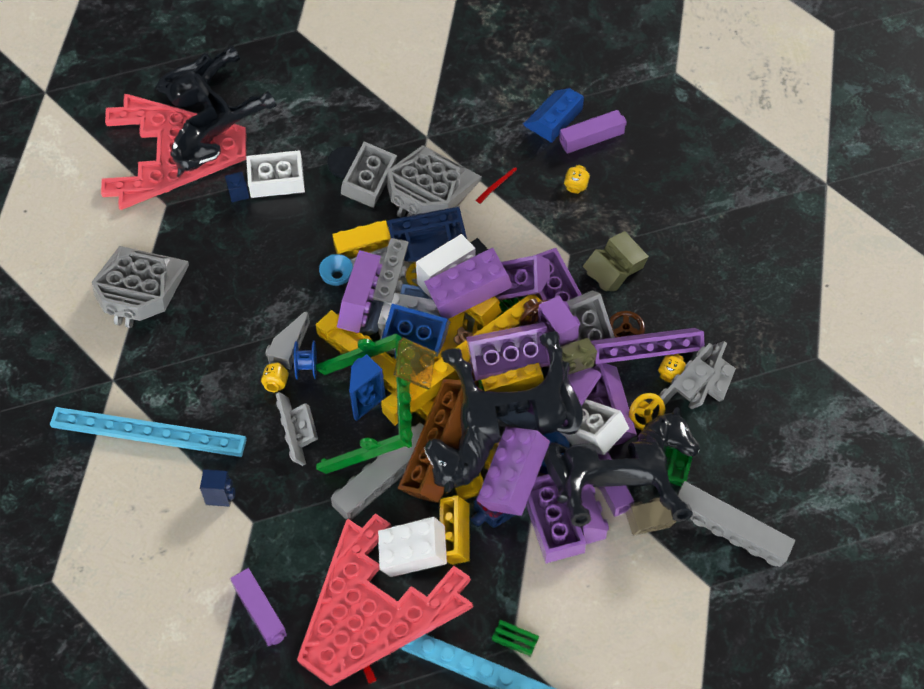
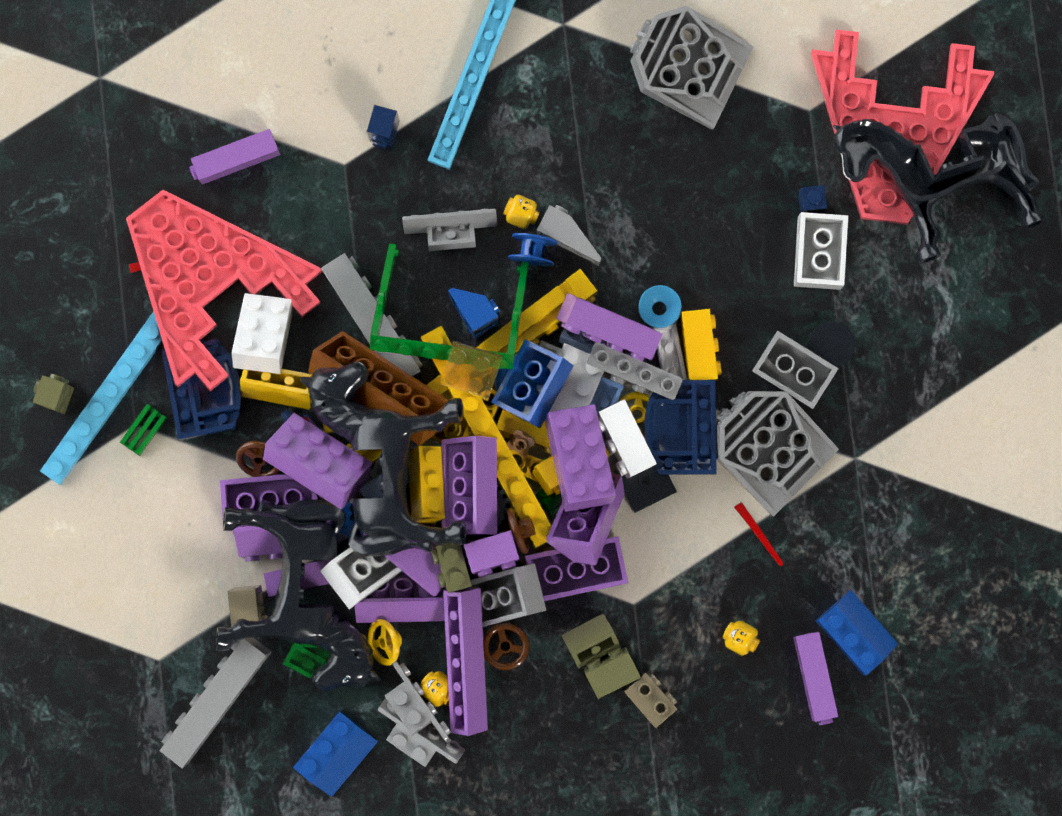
camera: 100 degrees right, 25 degrees up
(488, 589) = (205, 411): none -> dark blue slope
(517, 533) = (257, 458): none -> reddish brown piece
(640, 225) = (650, 699): none -> dark tan brick
(744, 435) = (335, 754): none -> blue slope

